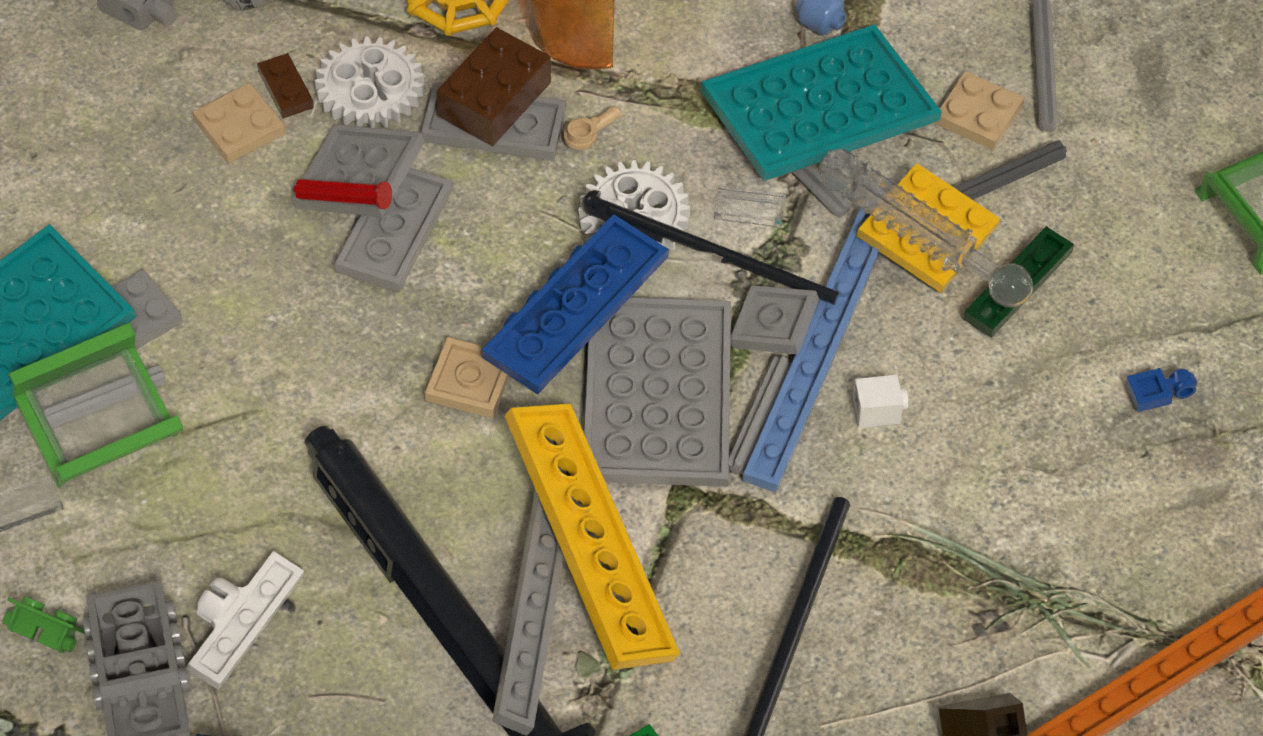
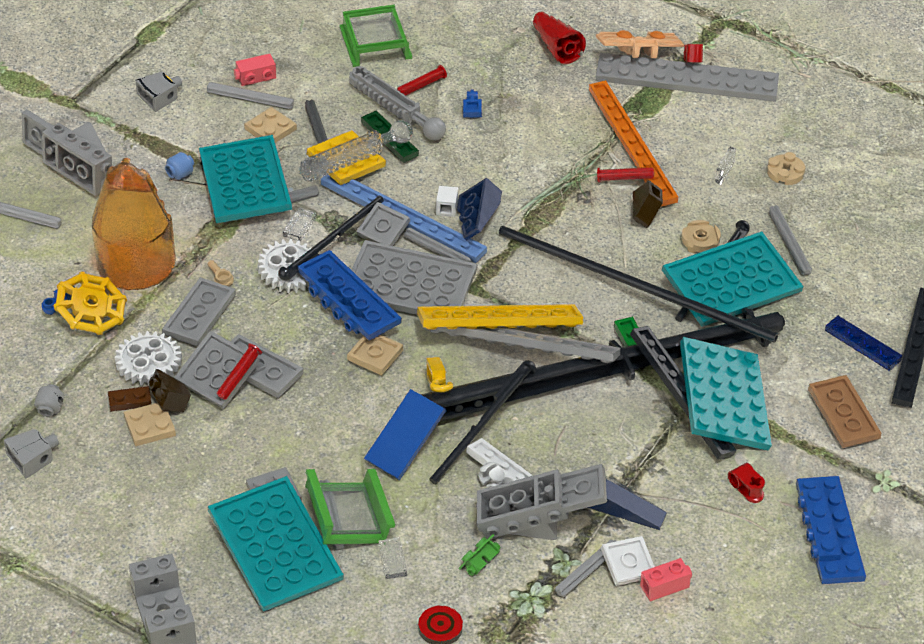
camera: 75 degrees left, 10 degrees down
(268, 451) = (405, 434): none -> blue tile
(291, 124) = (169, 392): none -> dark brown slope
(382, 570) = (501, 396): none -> black bar
(415, 467) = (437, 375): none -> yellow piece
(494, 86) = (185, 297): reddish brown brick -> none
(887, 451) = (478, 206): none -> dark blue wedge
(1047, 635) = (624, 174): none -> red axle
(1107, 52) = (255, 69): none -> coral brick
(1108, 269) = (395, 102): none -> light grey gear
(1192, 298) = (423, 80): none -> red axle

